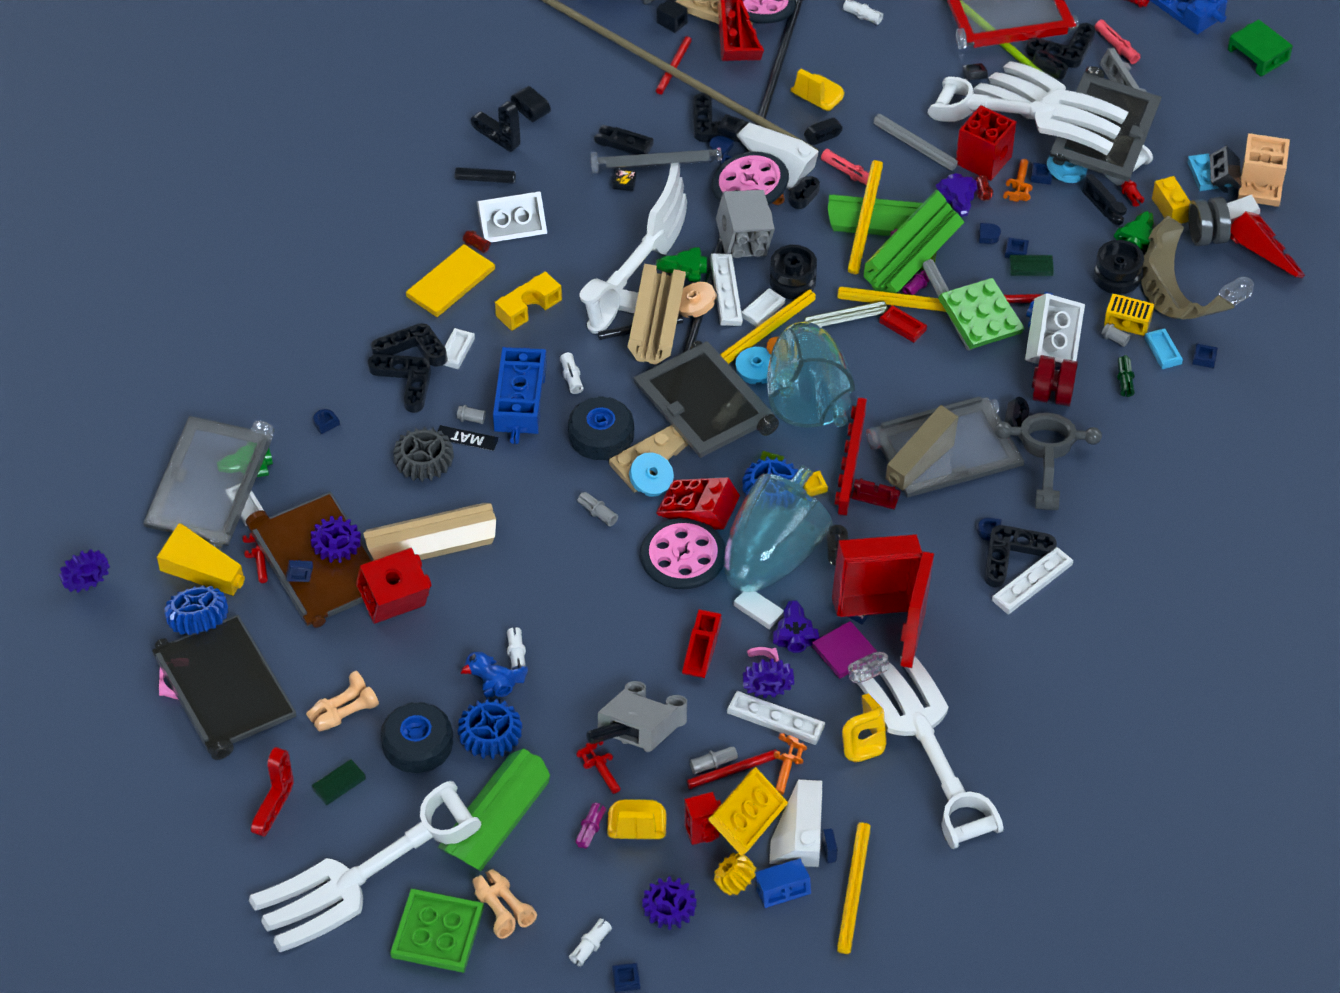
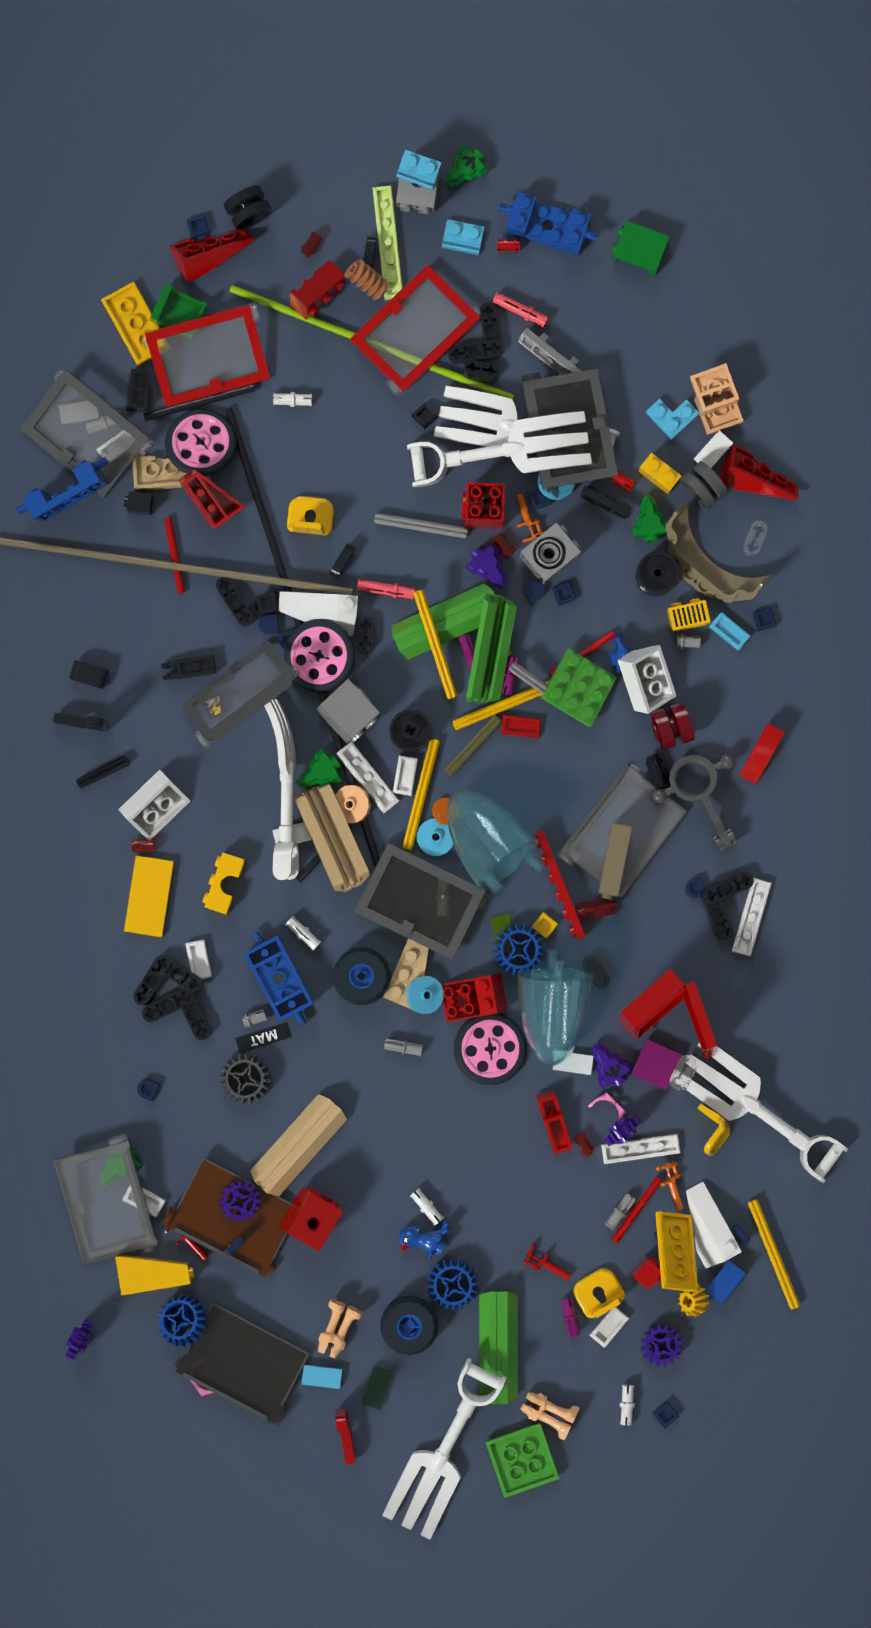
camera: 30 degrees left, 35 degrees up
(292, 740) = (321, 1376): none -> medium azure tile
(625, 859) = (609, 1326): none -> white tile
(638, 719) = (554, 1223): light grey piece -> none
(718, 686) = (584, 1144): none -> clear red pin
(1024, 204) = (559, 545): none -> light grey brick
(1031, 265) = (585, 605): clear green tile -> none
(1125, 376) = (717, 679): dark green axle -> none
(1133, 450) = (761, 753): none -> red slope
(1225, 169) = (685, 415): black hinge -> none

